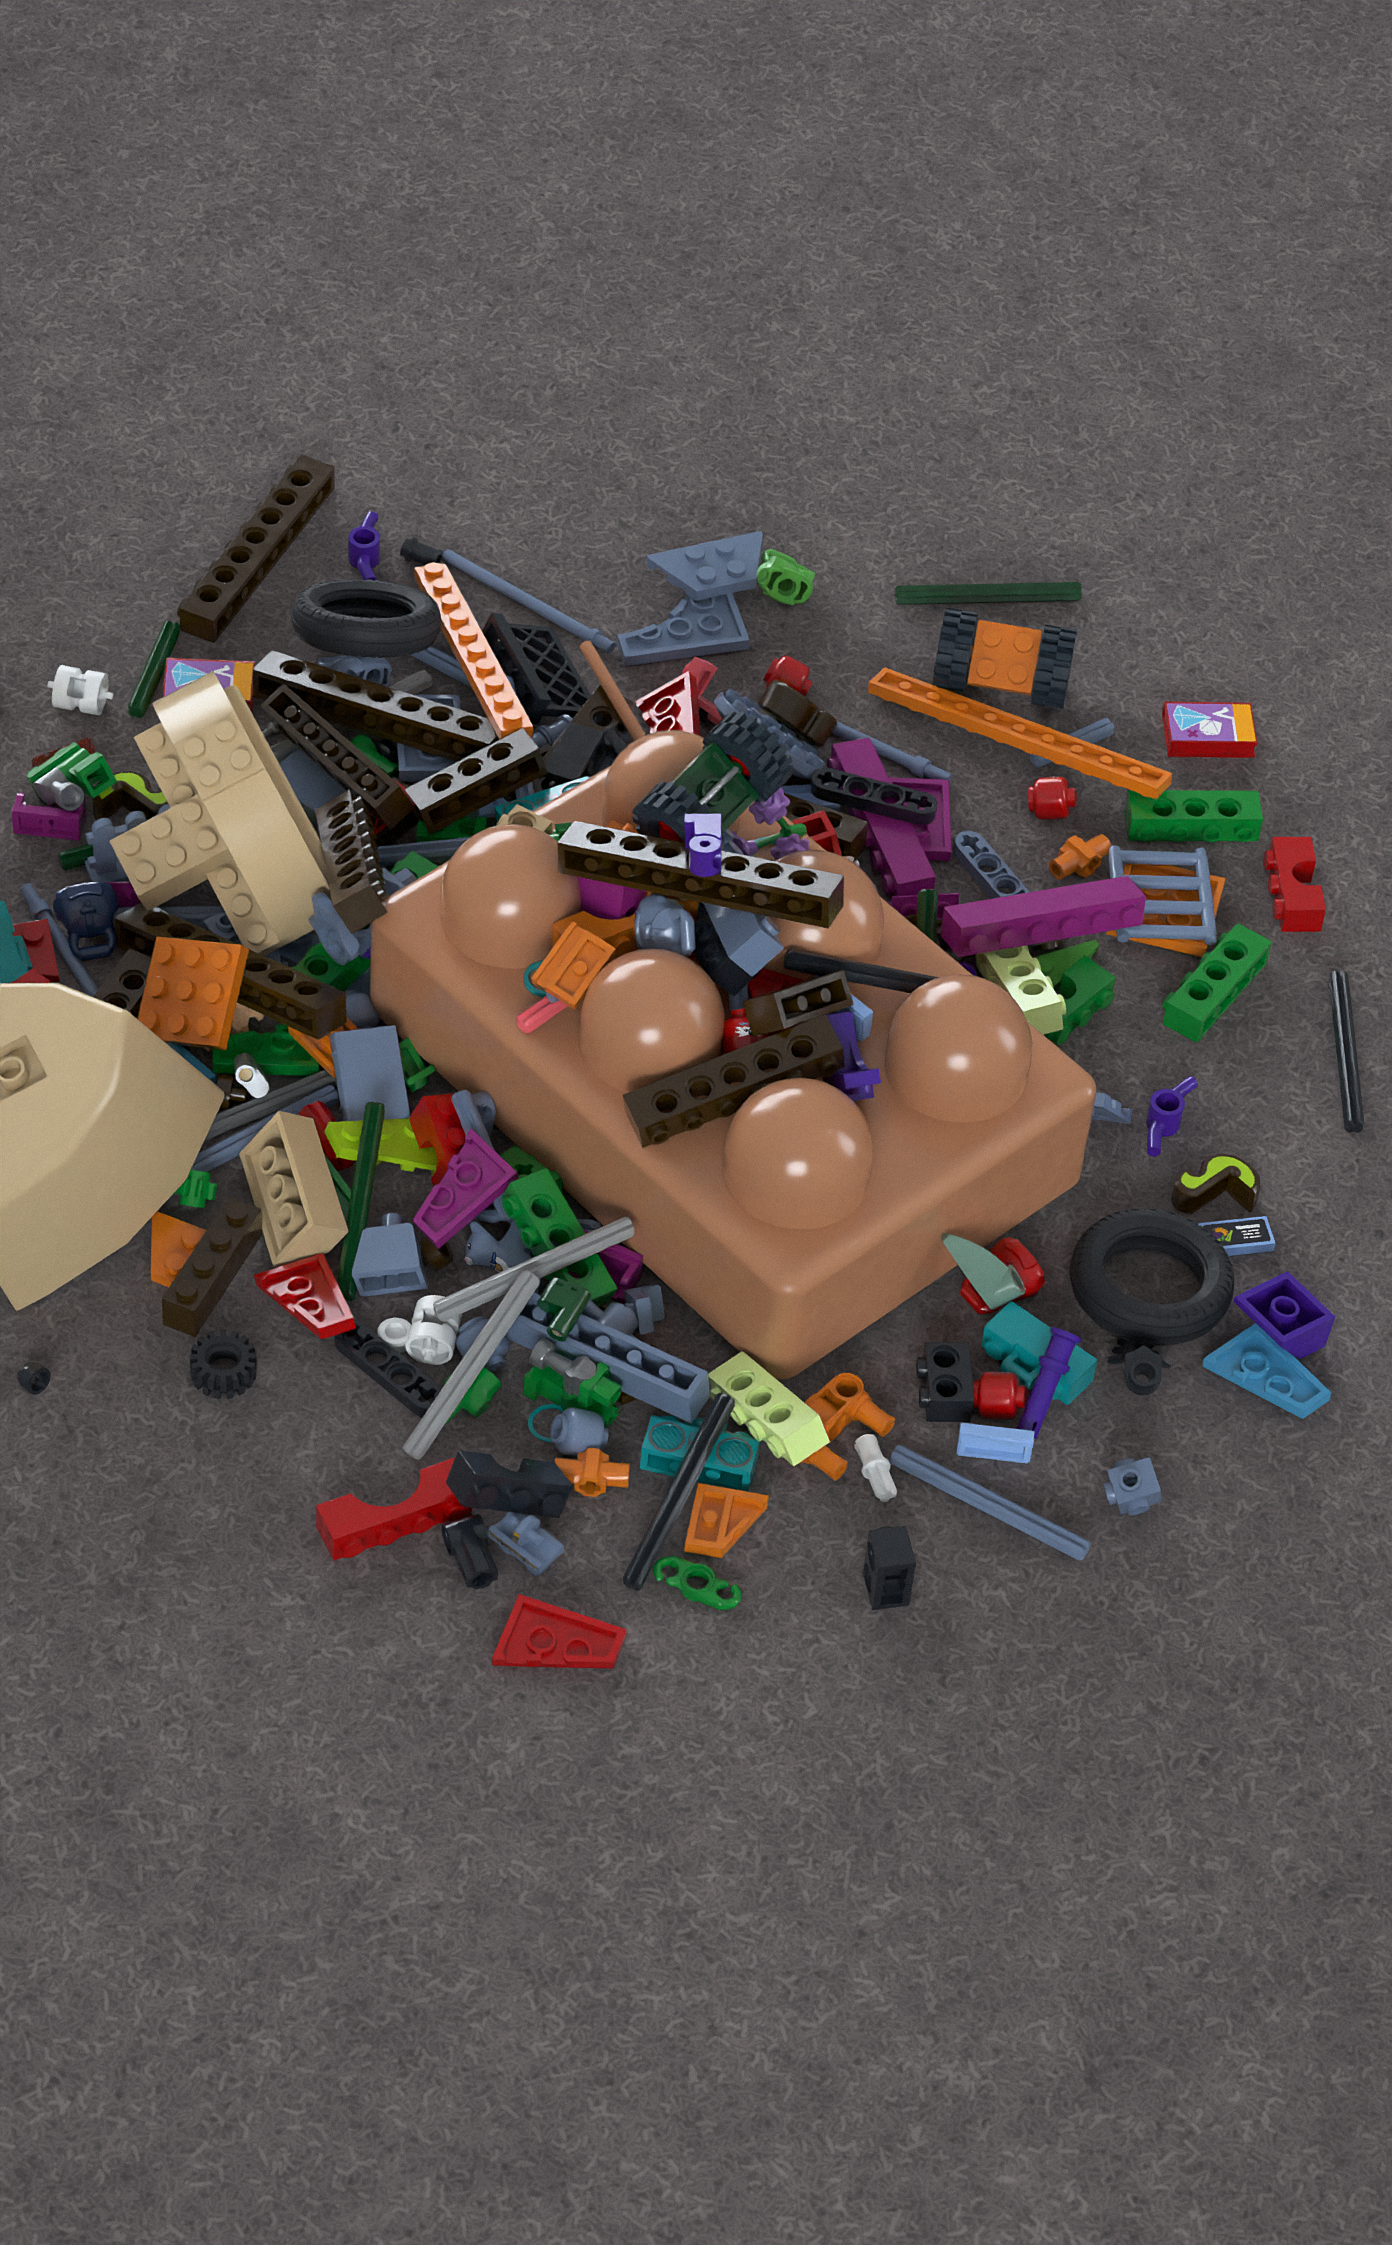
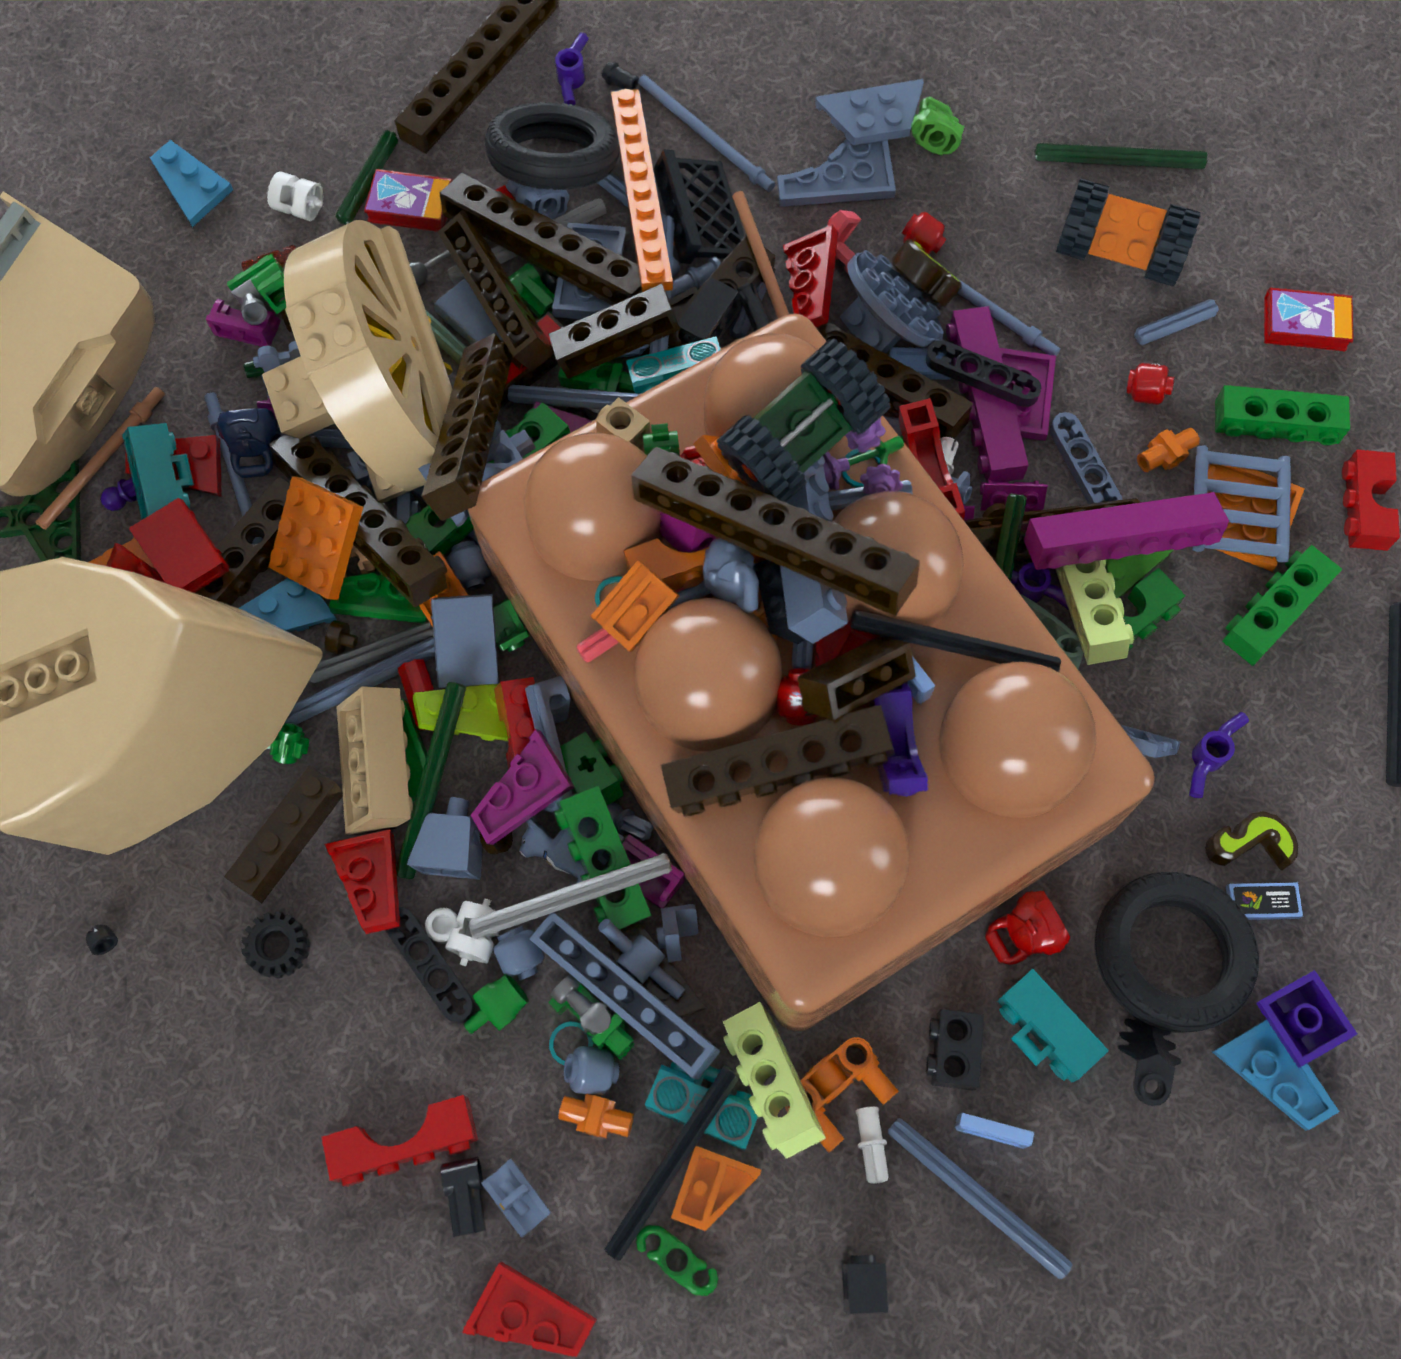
camera: 15 degrees right, 20 degrees up
(171, 1246) = (257, 801): orange wing -> none
(250, 1075) = (358, 626): piece -> none
(471, 1365) = (496, 991): light grey axle -> none
(484, 1484) = (478, 1147): black arch -> none
(566, 1303) = (593, 948): dark green piece -> none
(704, 843) = (780, 494): dark purple leg -> none
(987, 1274) = (1010, 947): sand green piece -> none
(999, 1395) = (1005, 1073): red head -> none
(1020, 733) = (1133, 315): orange plate -> none
(1053, 1365) = (1062, 1064): dark purple pin -> none
(1133, 1486) = (1124, 1208): sand blue brick -> none

